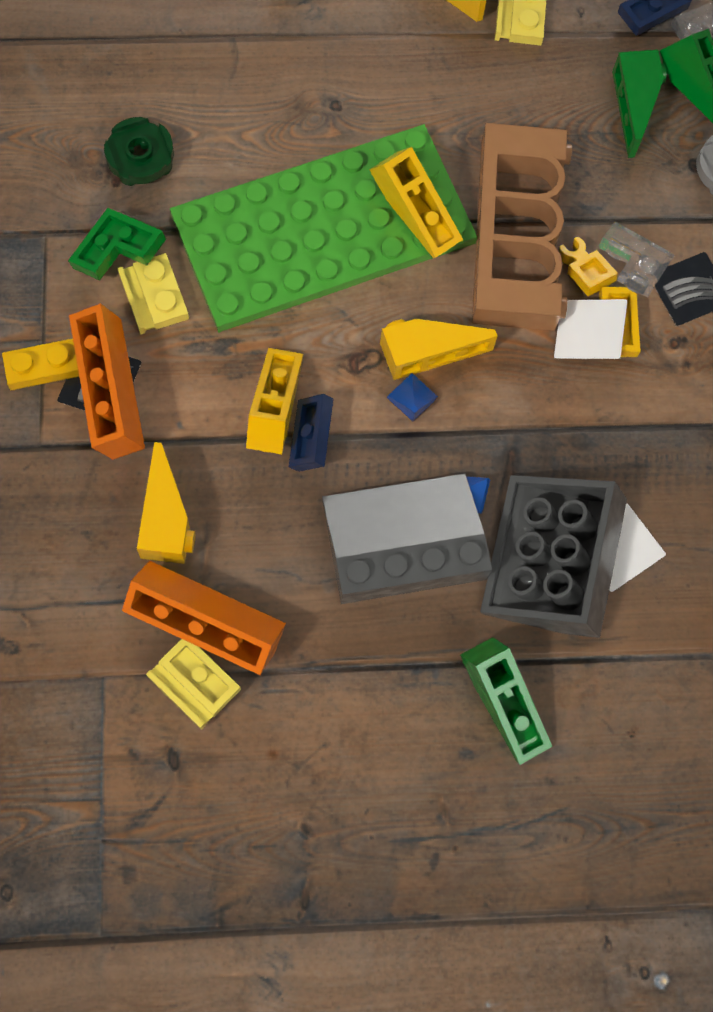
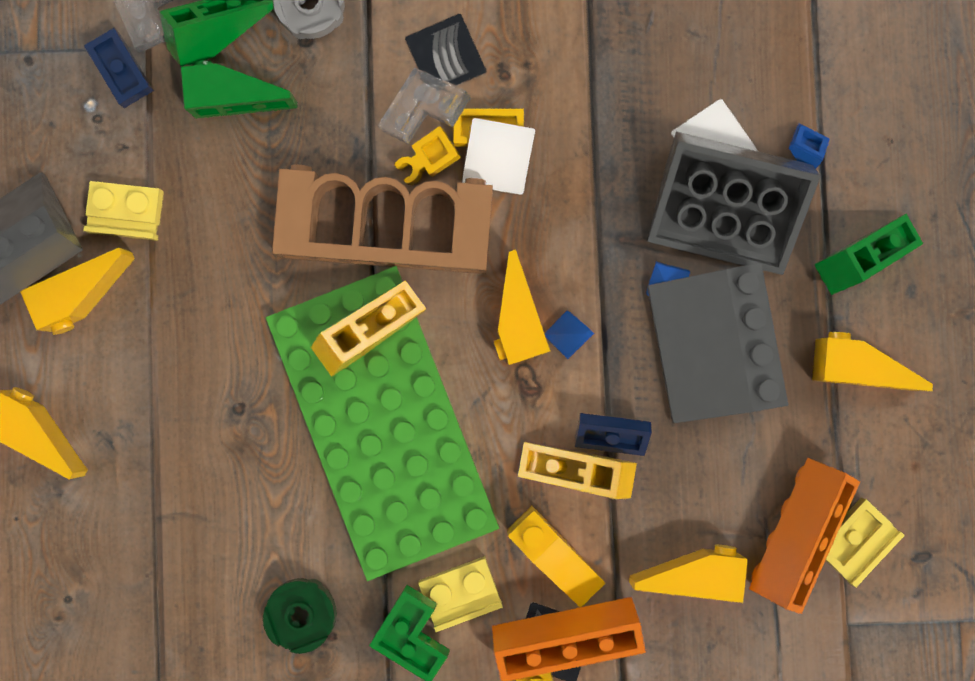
camera: 80 degrees left, 15 degrees up
(189, 376) = (554, 556): none -> yellow slope
(386, 679) = (858, 363): none -> yellow slope
(619, 640) = (808, 145): none -> blue slope

